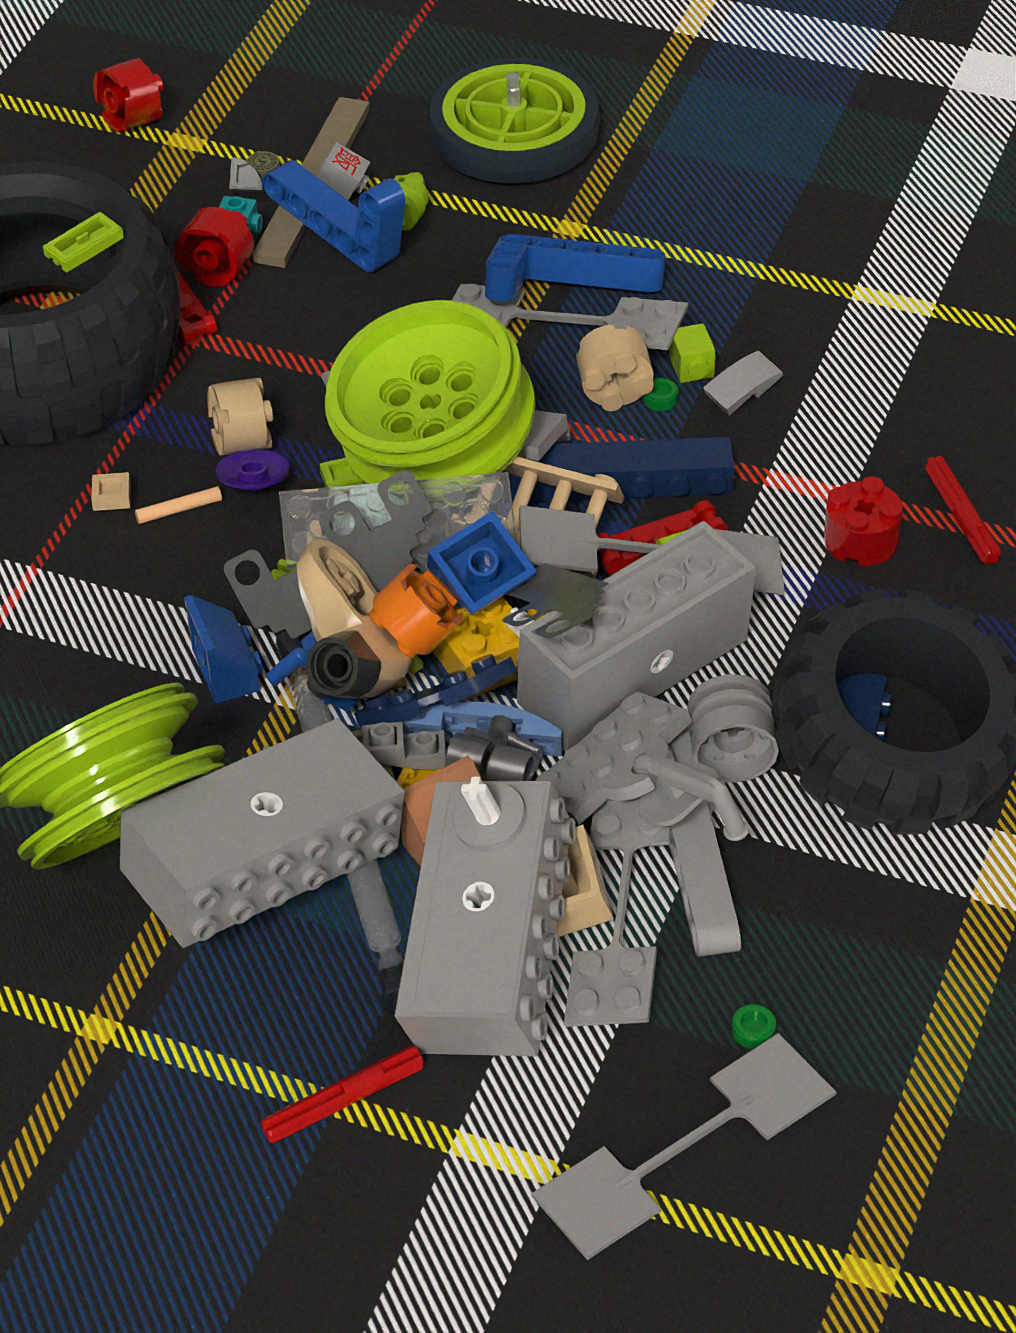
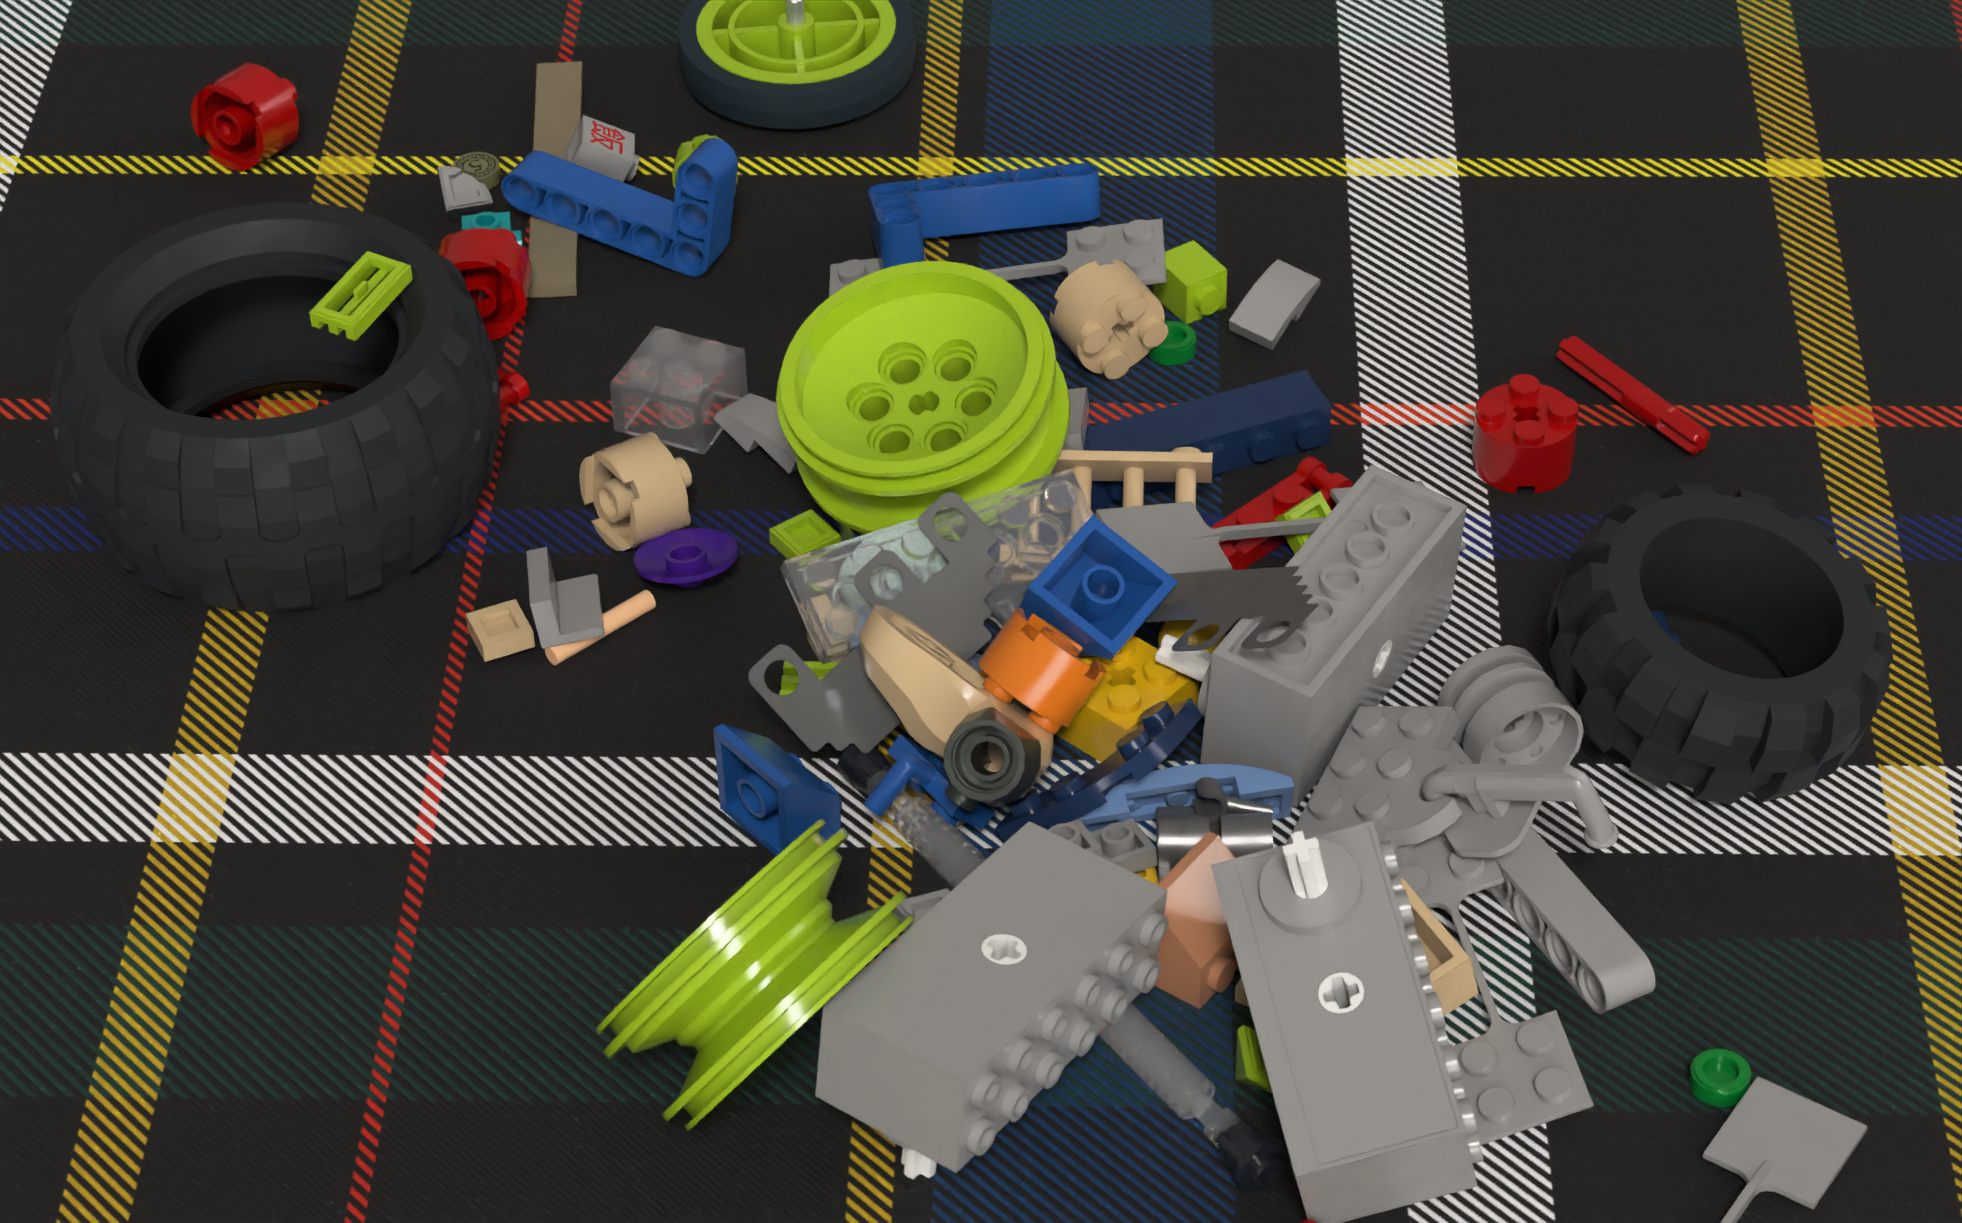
camera: 20 degrees left, 5 degrees down
(152, 484) = (562, 609): none -> light grey panel
(303, 349) = (677, 388): none -> clear brick

